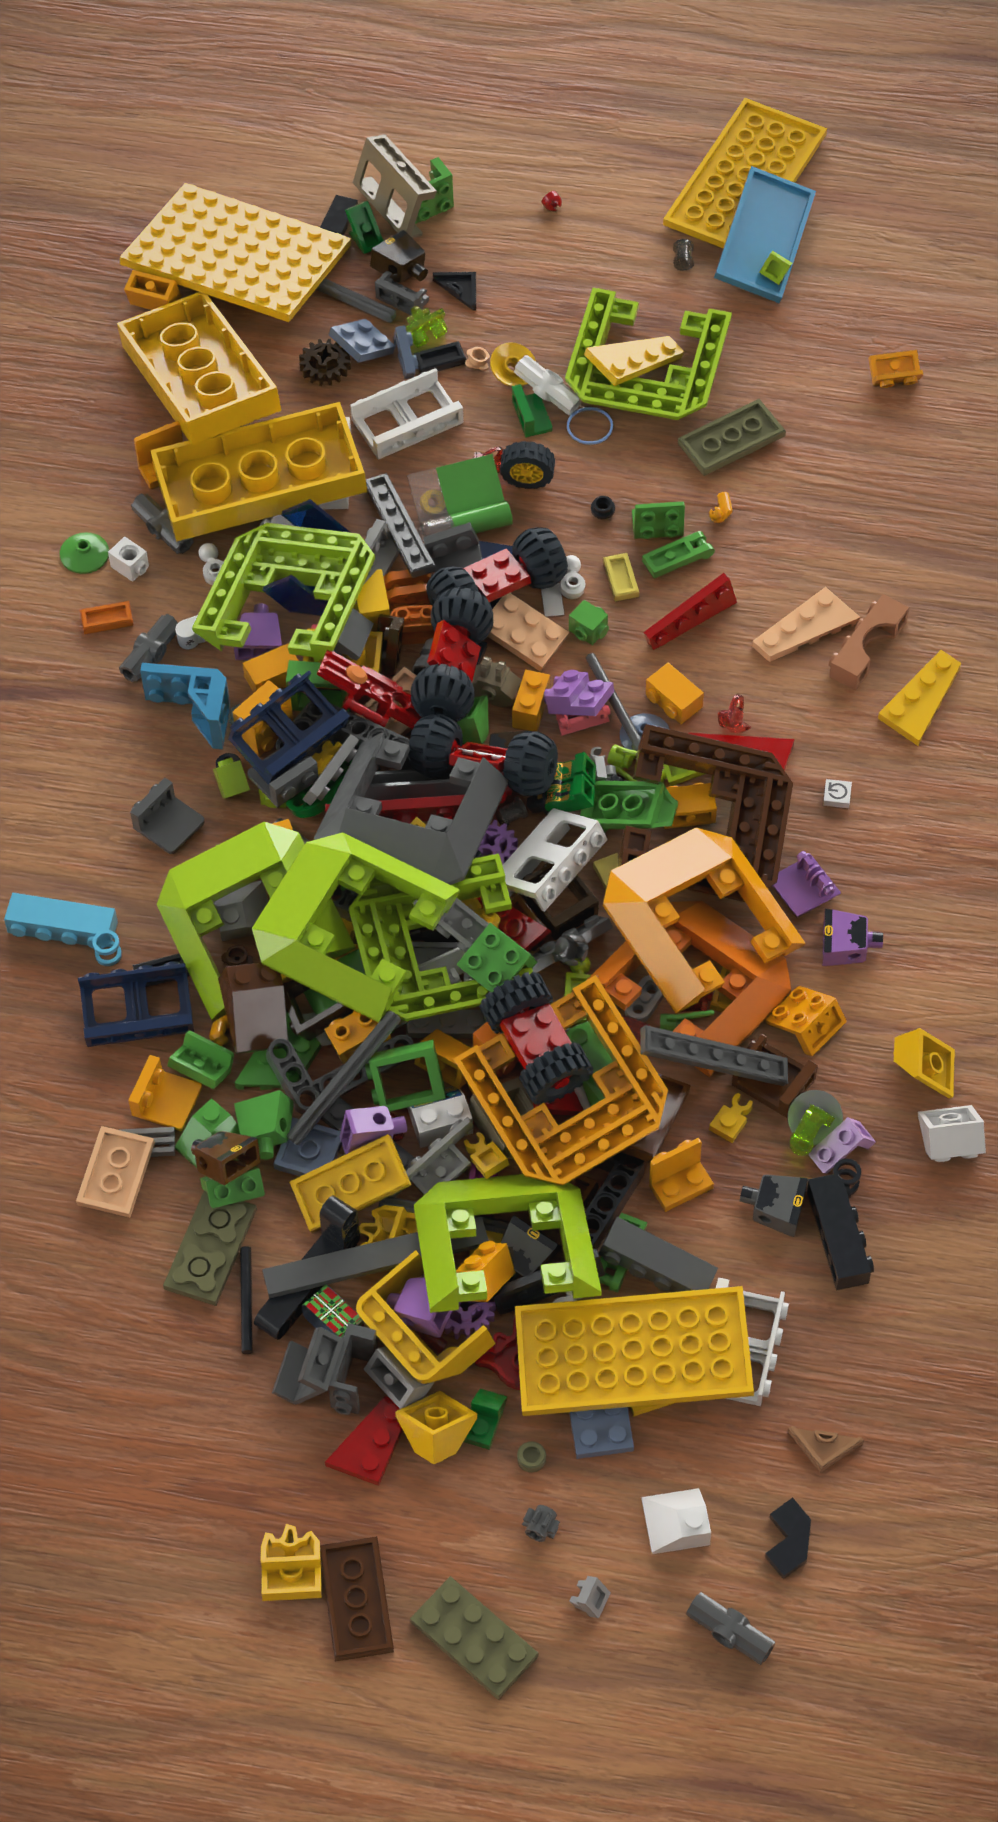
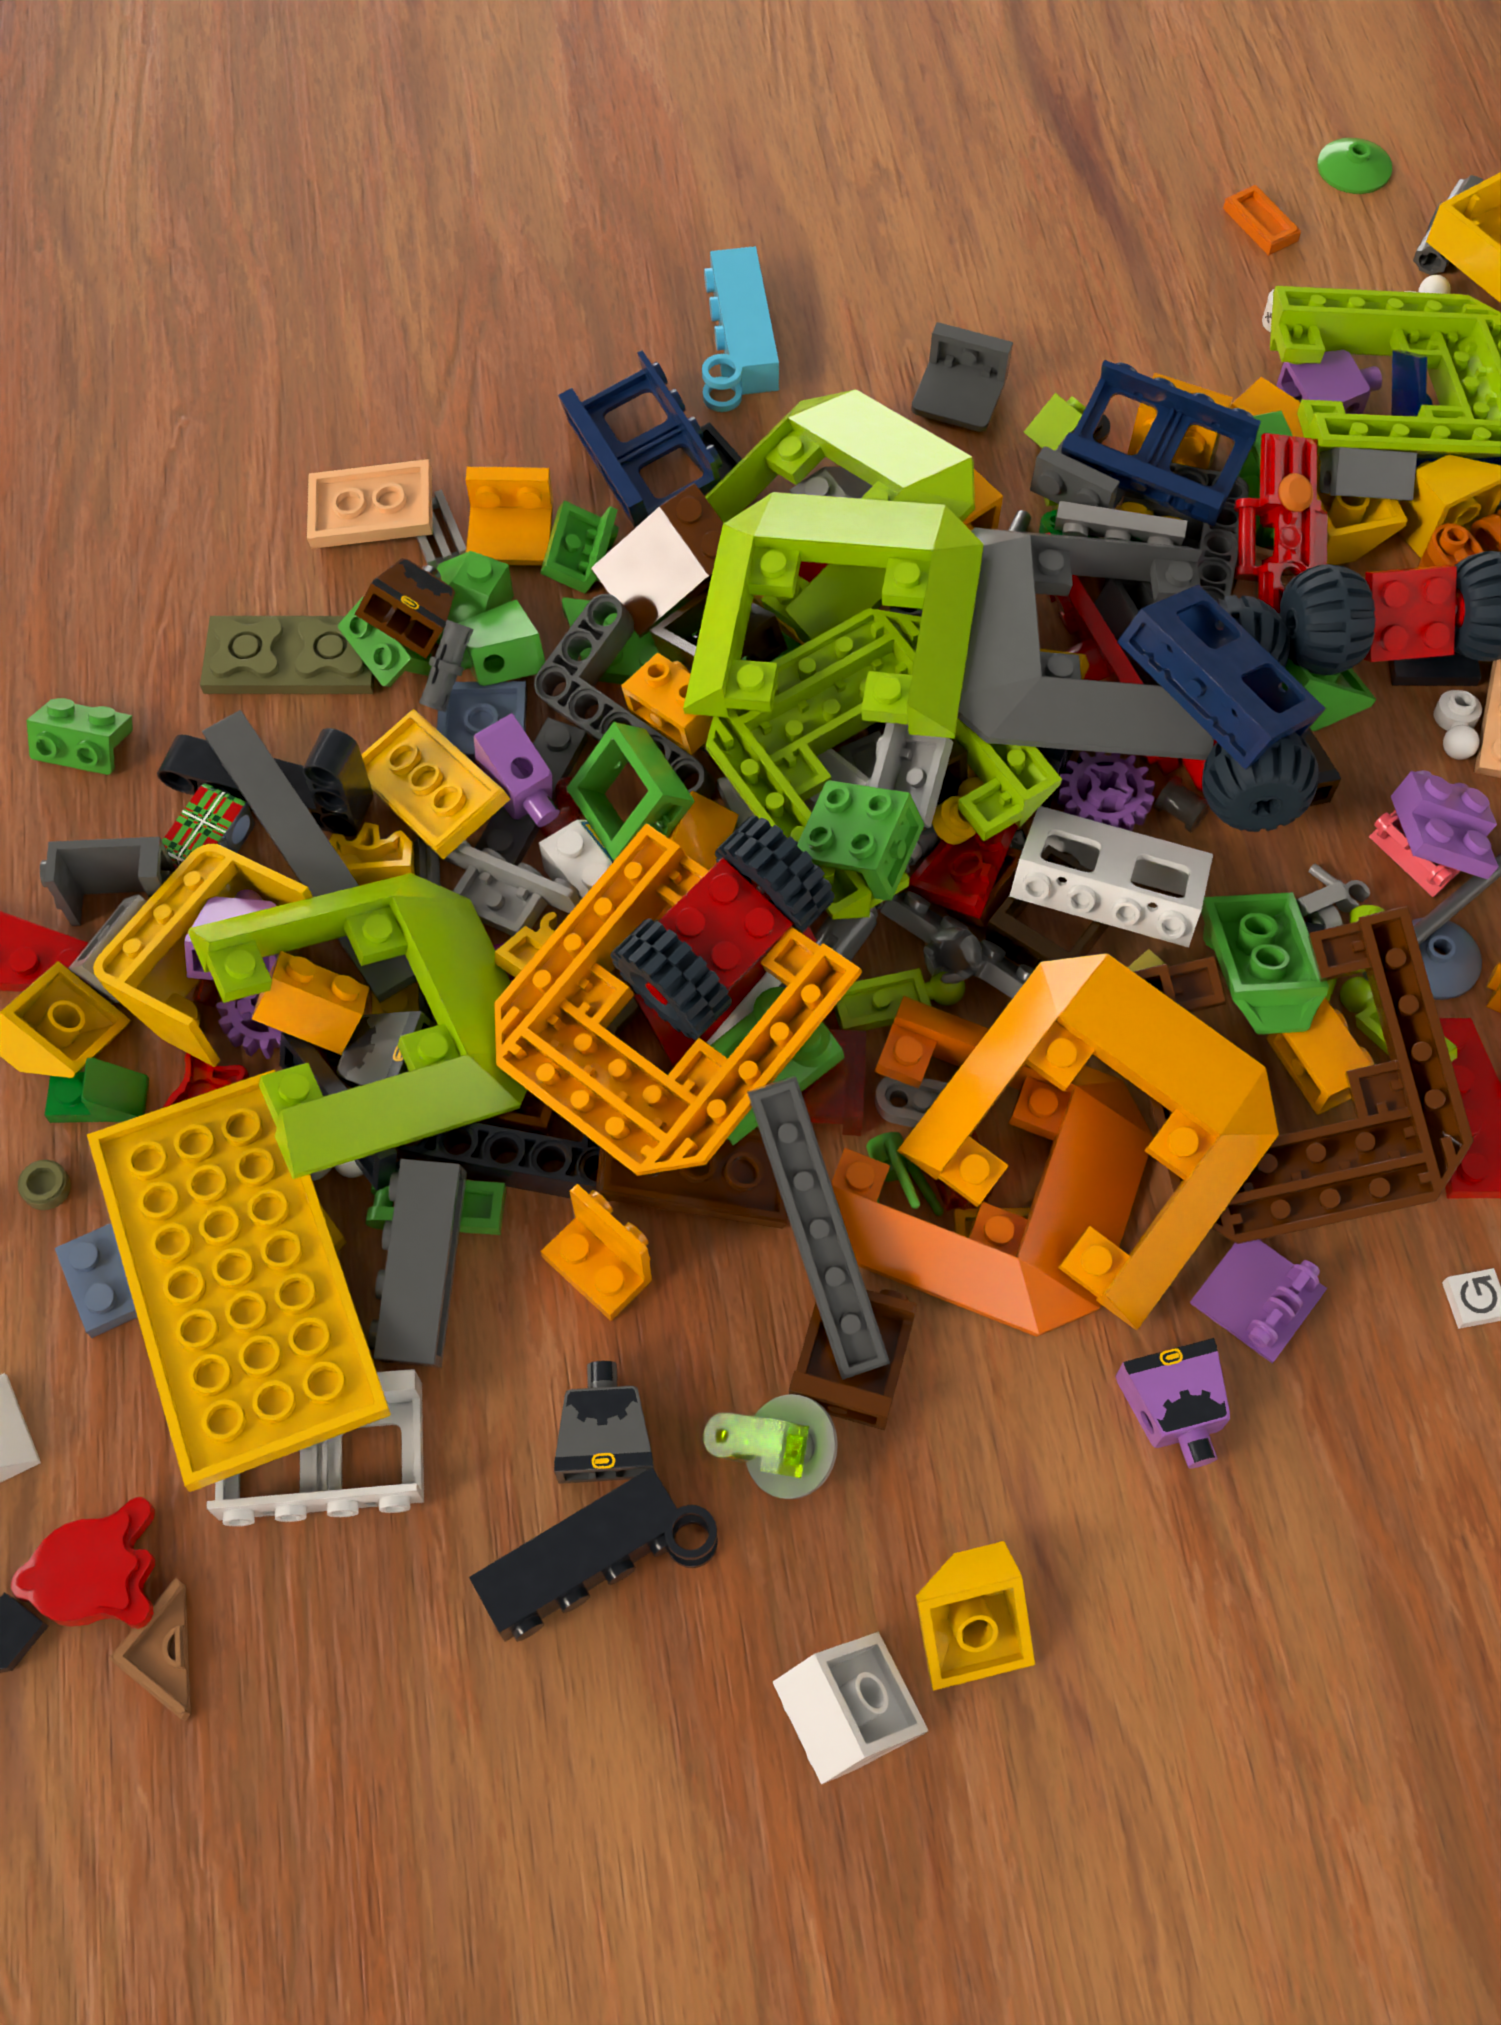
camera: 70 degrees right, 5 degrees up
(128, 559) = (1368, 206): white brick -> none
(149, 647) = (1231, 275): dark grey piece -> none
(192, 685) = (1180, 335): dark azure bracket -> none
(223, 1379) = (77, 735): none -> bright green bracket
(246, 1300) = (253, 714): black bar -> none
(290, 1162) = (446, 666): none -> dark grey pin
(310, 1370) = (93, 816): dark grey panel -> none
(343, 1077) = (590, 706): dark grey axle -> none
(392, 642) = (1397, 541): dark brown bracket -> none
(476, 752) = (1219, 674): none -> dark blue window
(495, 682) = (1407, 701): dark tan hinge -> none
(516, 666) = (1458, 714): none -> white plate
(530, 701) = (1386, 761): light orange brick -> none
(568, 787) = (1263, 860): green hips -> none
(731, 1120) = (742, 1306): yellow plate -> none
(771, 1469) = (92, 1570): none -> red tile
(809, 1016) = (988, 1378): light orange bracket -> none
(840, 1144) = (760, 1511): lavender bracket -> none

